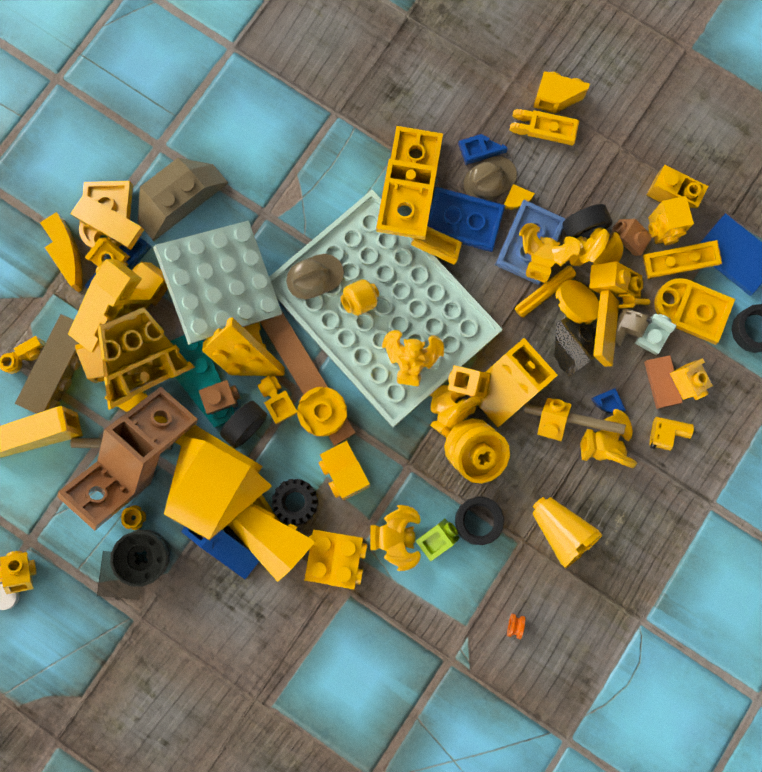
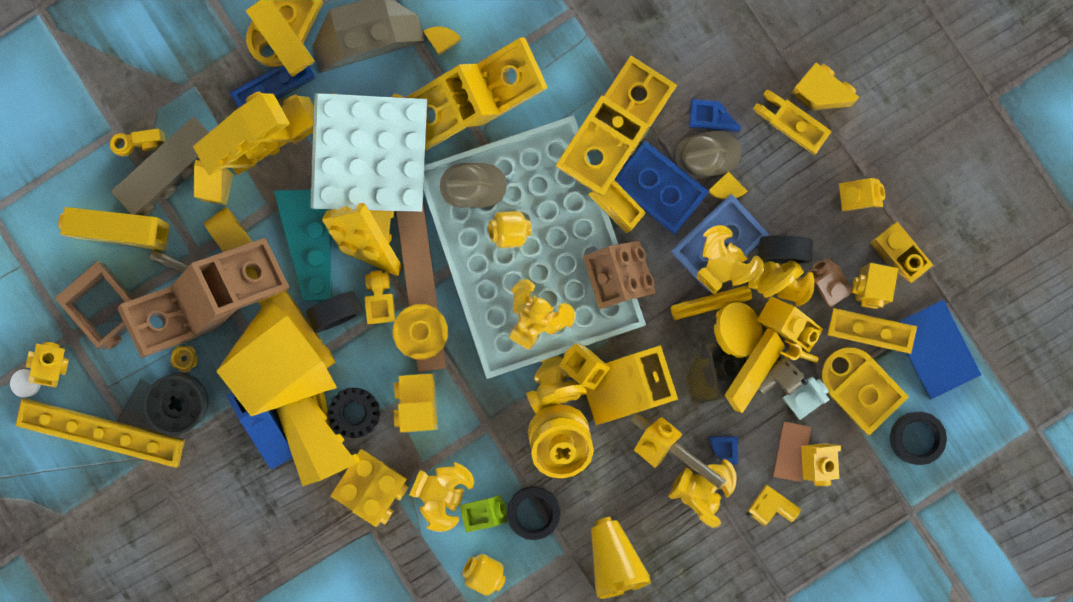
camera: 30 degrees right, 5 degrees up
(20, 497) = (81, 287): none -> medium nougat window
(64, 250) = (223, 46): yellow slope -> none
(85, 611) = (100, 432): none -> yellow tile
(104, 247) = (266, 65): yellow brick -> none
(136, 356) = (253, 198): yellow wedge -> none
(219, 397) = (321, 272): medium nougat bracket -> none
(240, 174) = (441, 38): none -> yellow tile
(291, 199) = (480, 91): none -> yellow bracket
(461, 590) = (483, 574): none -> yellow head
(462, 297) = (619, 274): none -> medium nougat bracket
(623, 159) = (861, 194): none -> yellow bracket

